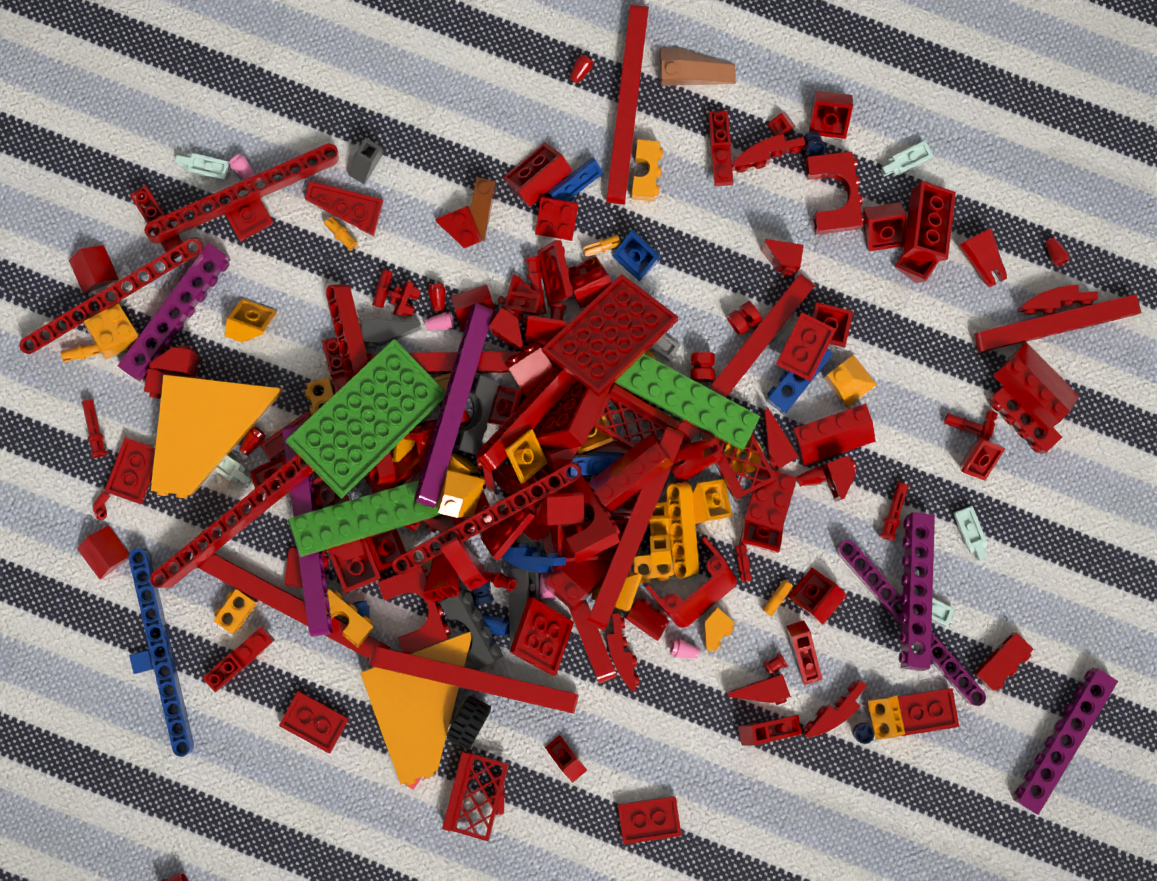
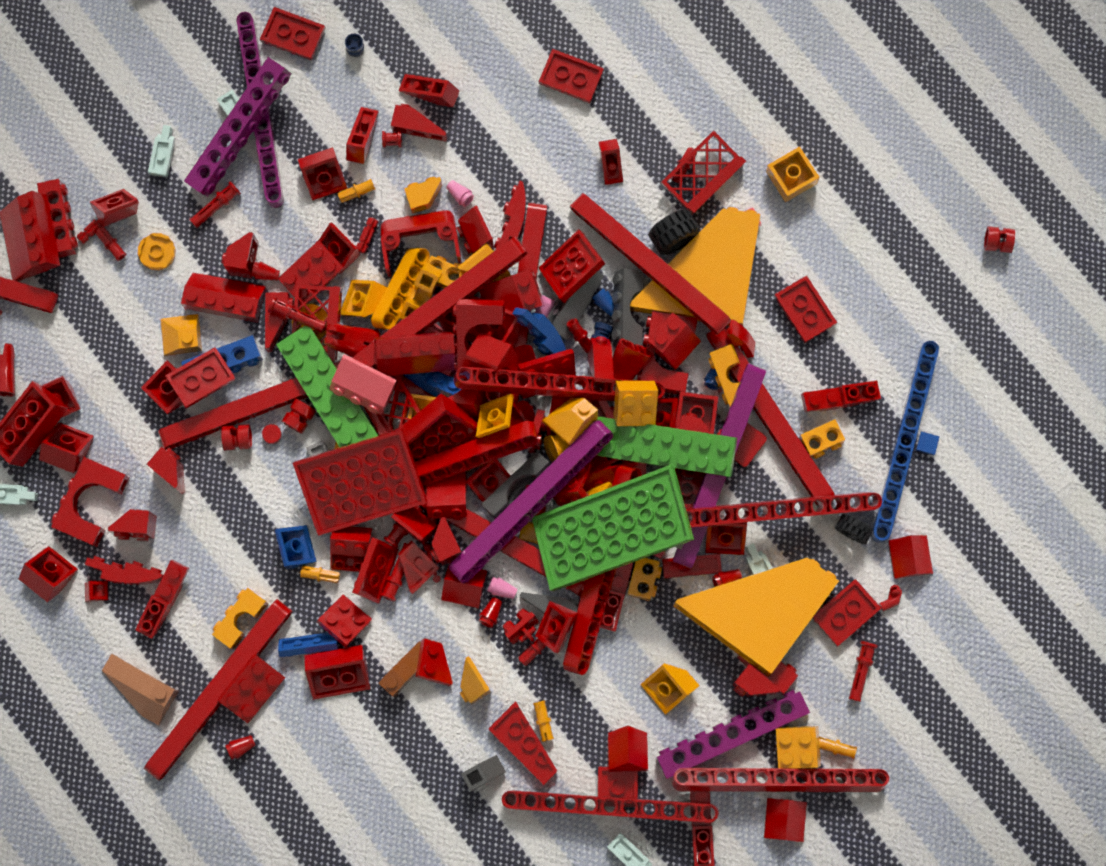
camera: 140 degrees left, 5 degrees down
(162, 545) = (854, 529): none -> black tyre
(241, 166) = (598, 836): bright pink cone -> none
(255, 248) = (627, 749): none -> red slope
(355, 659) = (741, 337): none -> red slope
(372, 312) = (555, 626): none -> red slope
(393, 841) = (792, 174): none -> light orange brick
(410, 540) = (635, 403): none -> light orange brick
(411, 620) = (673, 341): none -> red slope
(415, 227) = (472, 683): none -> light orange slope
(600, 119) = (251, 688): none -> red plate
(658, 416) = (362, 385): none -> coral slope
(717, 340) = (271, 434): none -> red tile
(766, 449) = (289, 312): none -> red pin
(780, 194) = (135, 524): none -> red slope
(814, 144) = (80, 552): dark blue wheel -> none
(830, 717) = (373, 71): red slope -> none
(890, 716) = (324, 43): light orange brick -> none
(919, 441) = (156, 251): none -> light orange tile
(1003, 662) = (205, 36): red brick -> none

